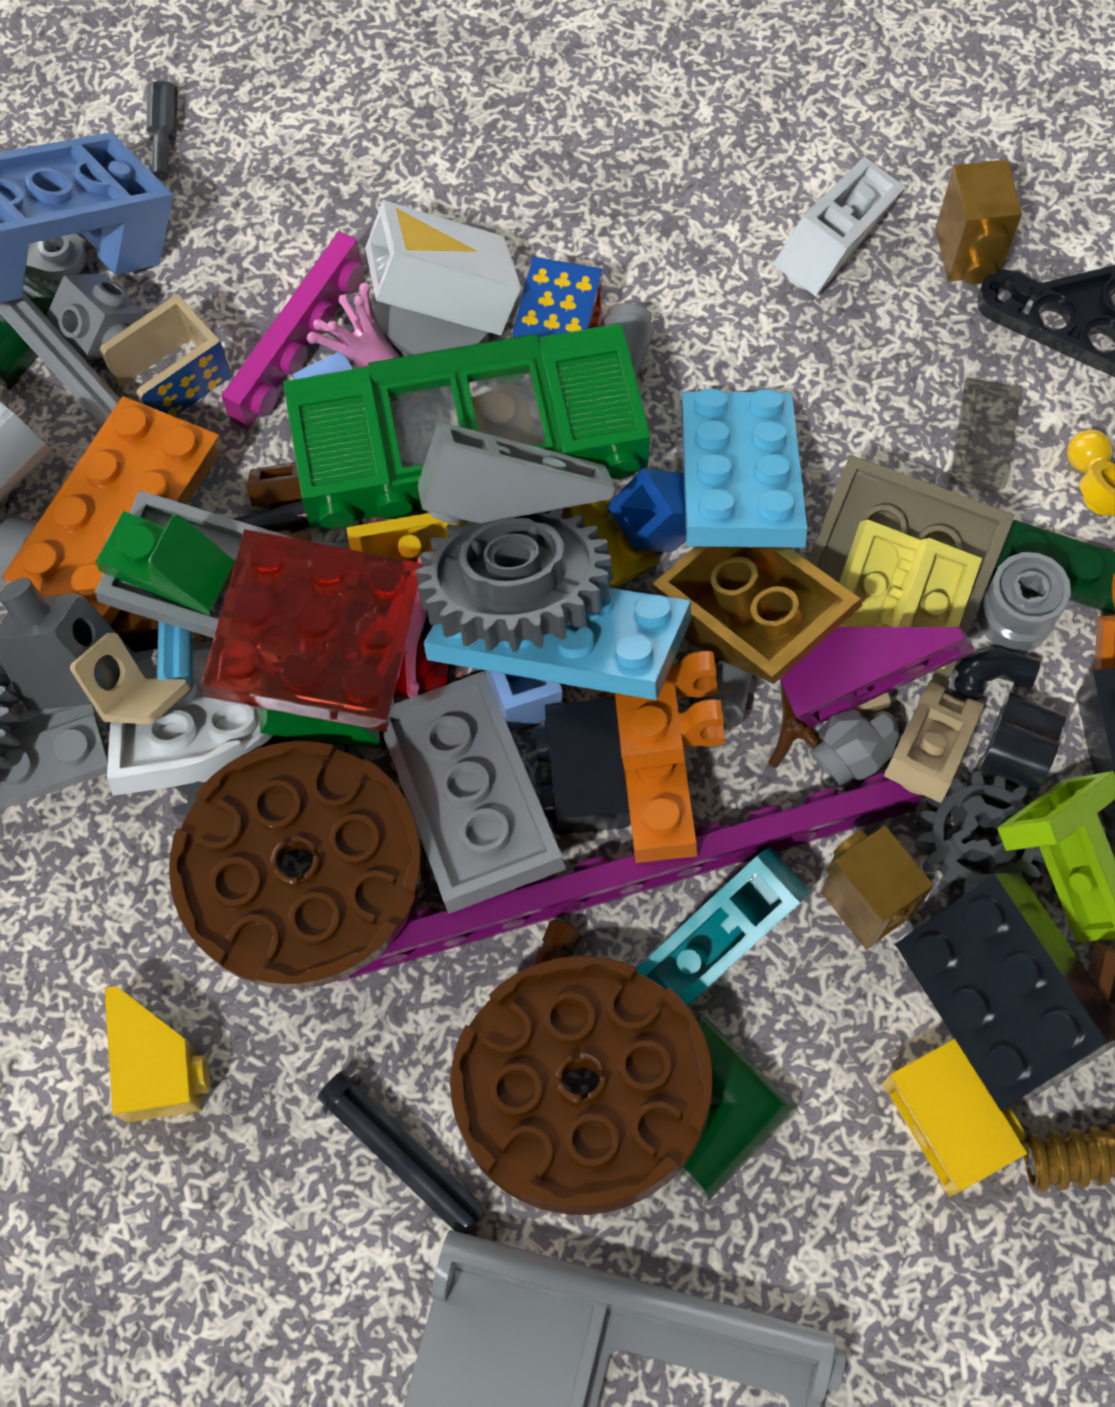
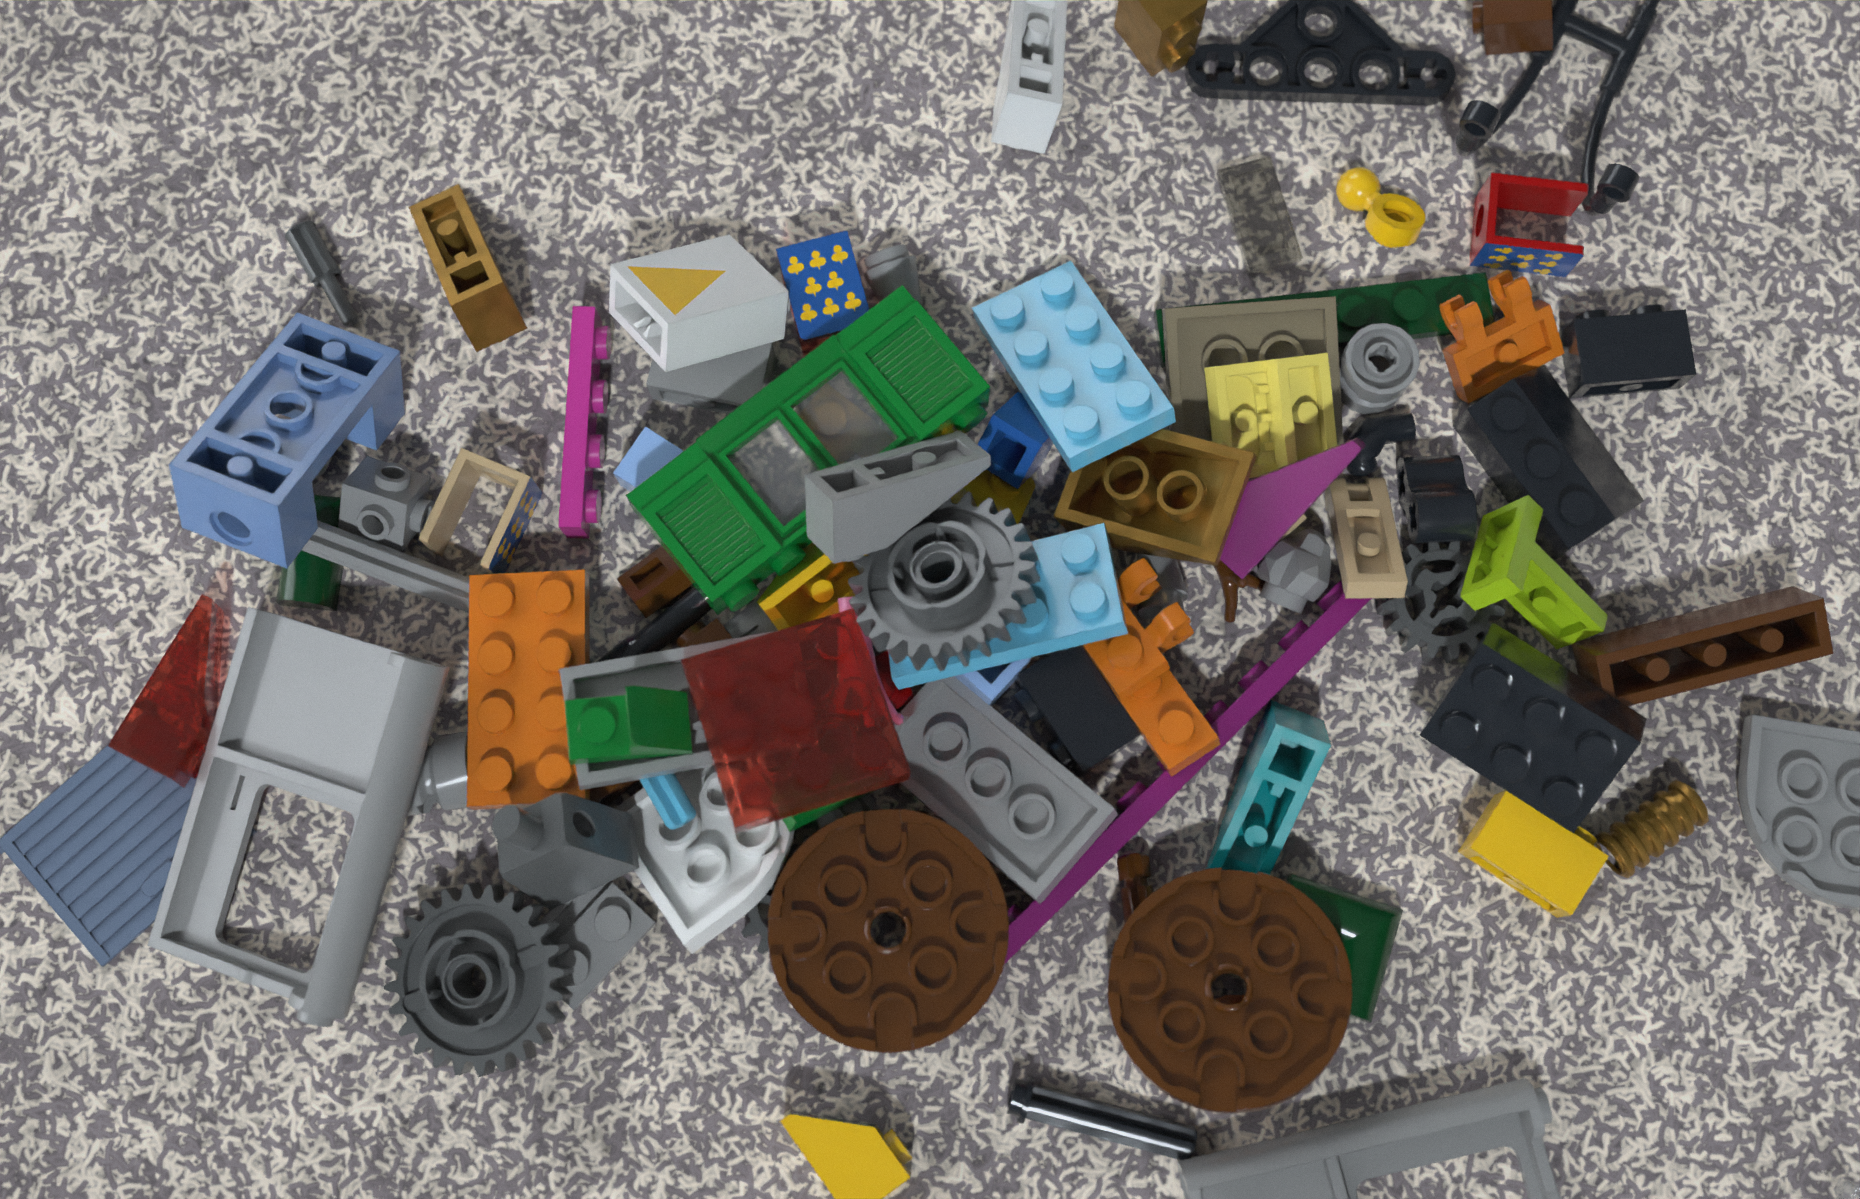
camera: 30 degrees left, 10 degrees up
(133, 697) = (657, 856): tan bracket -> none
(273, 176) = (467, 268): none -> pearl gold slope
(366, 342) = (662, 408): bright pink piece -> none
(874, 885) = (1379, 694): pearl gold brick -> none

